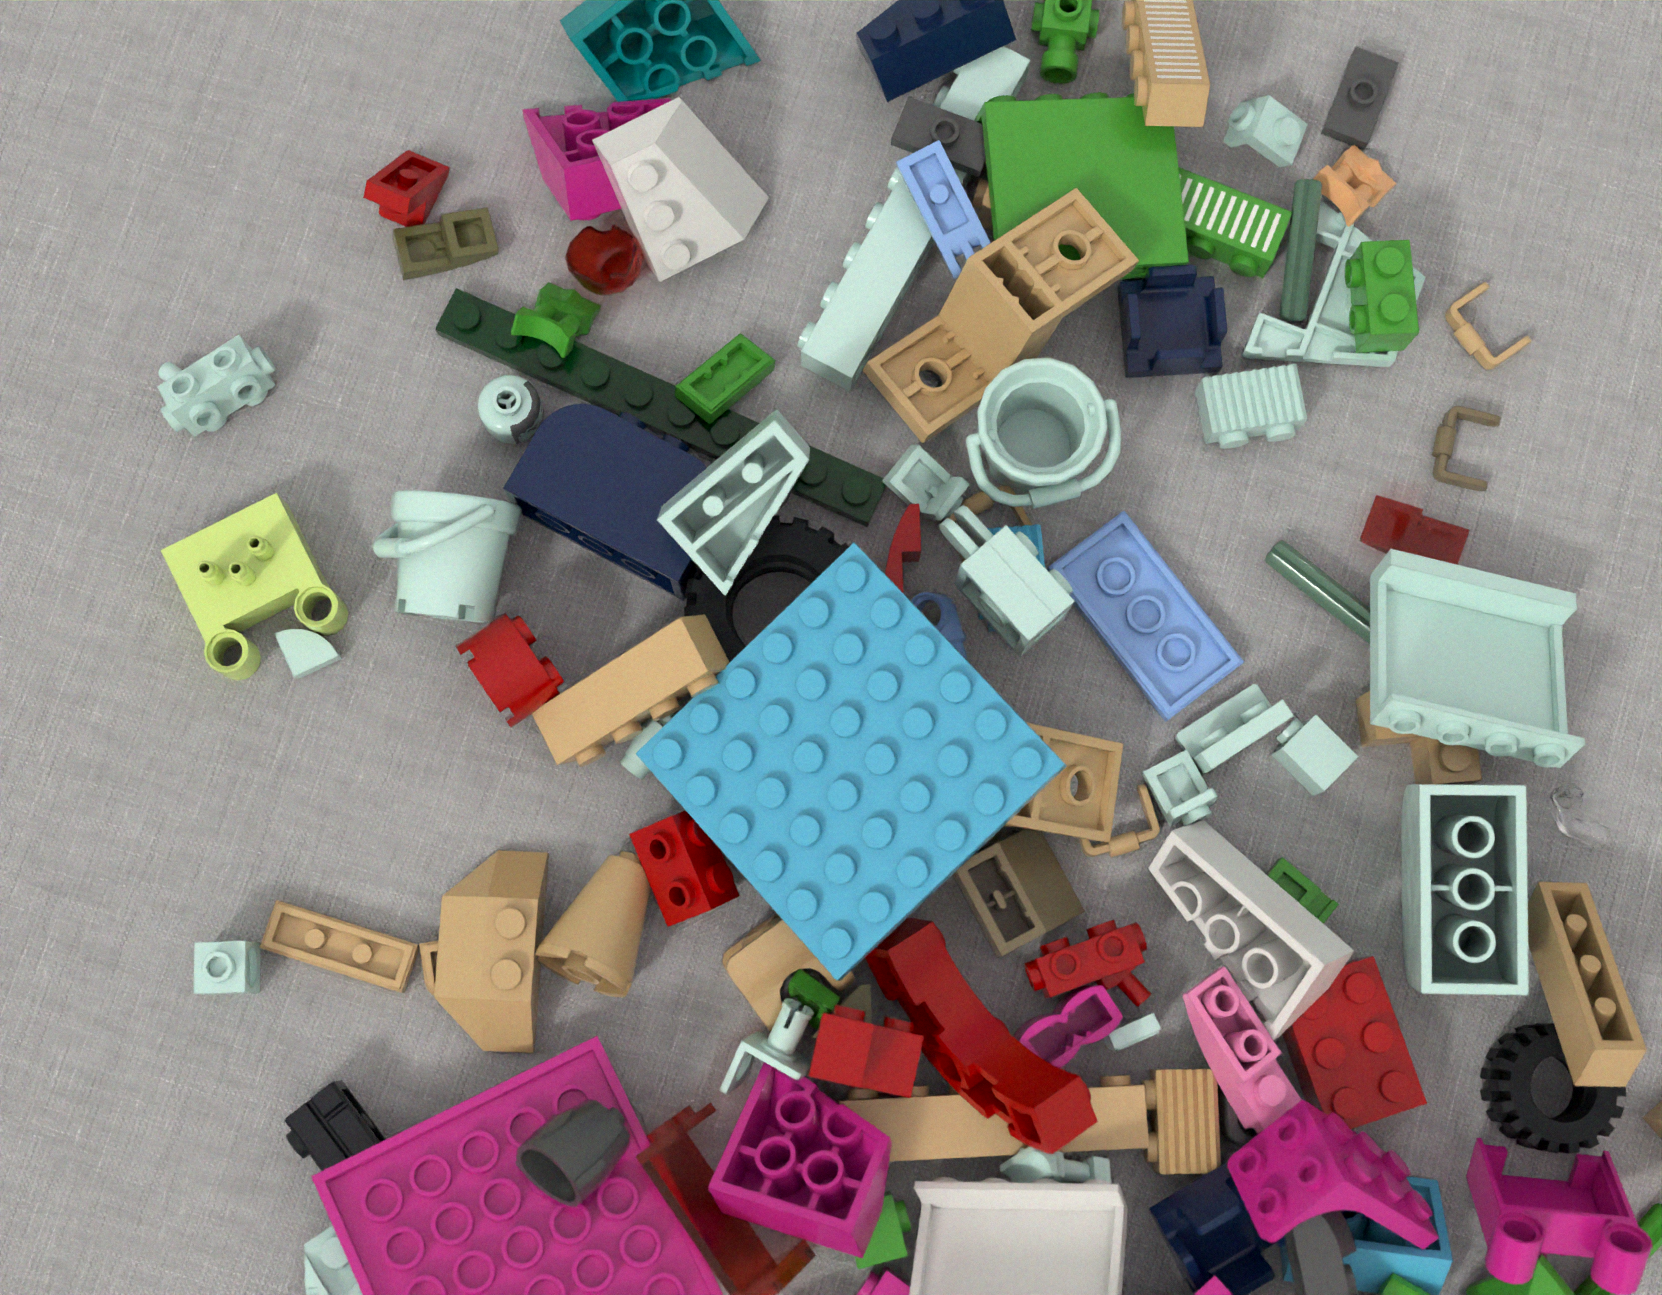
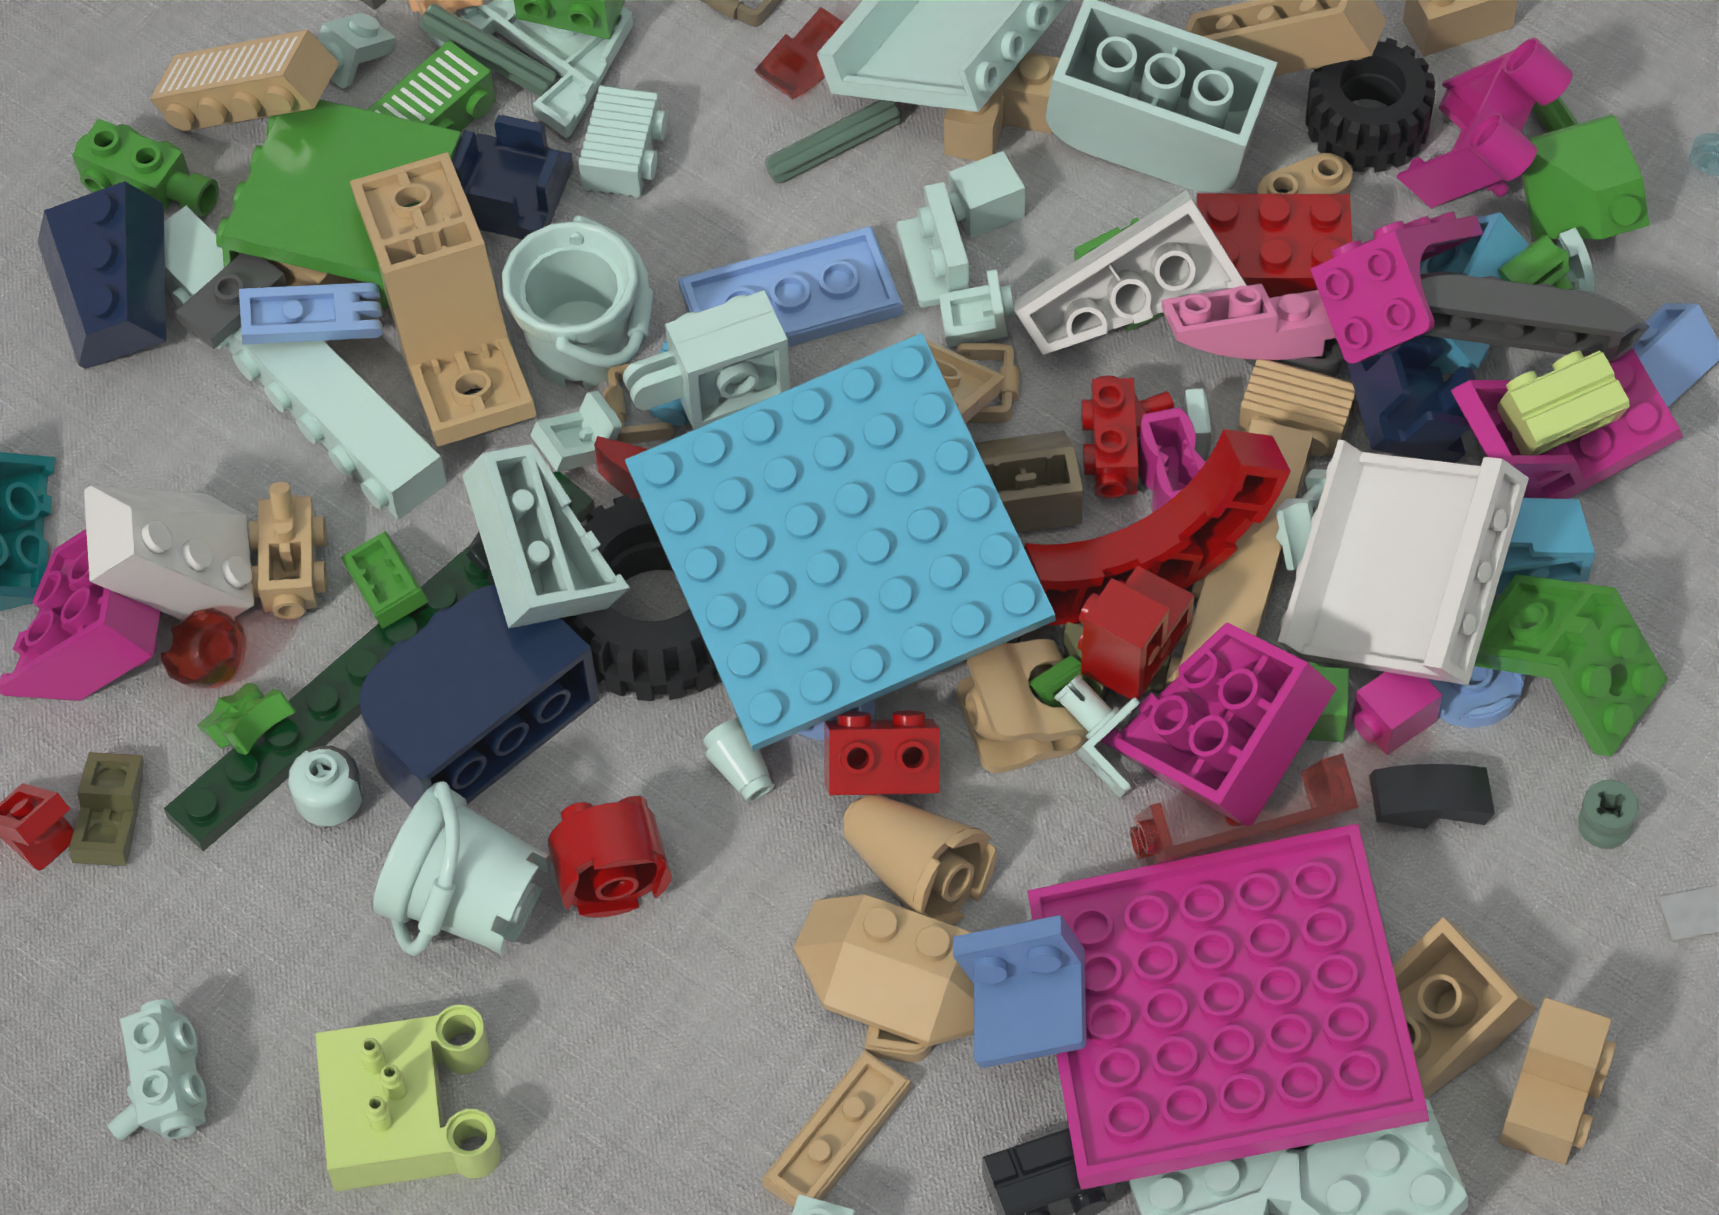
camera: 65 degrees left, 20 degrees down
(305, 651) = (497, 1076): light aqua tile -> none
(470, 1076) = (1025, 990): none -> medium blue bracket
(582, 1143) = (1141, 903): dark grey helmet -> none
(632, 690) = (682, 738): tan brick -> none
(732, 284) = (287, 553): none -> tan brick
(1441, 1050) = (1307, 177): none -> tan plate

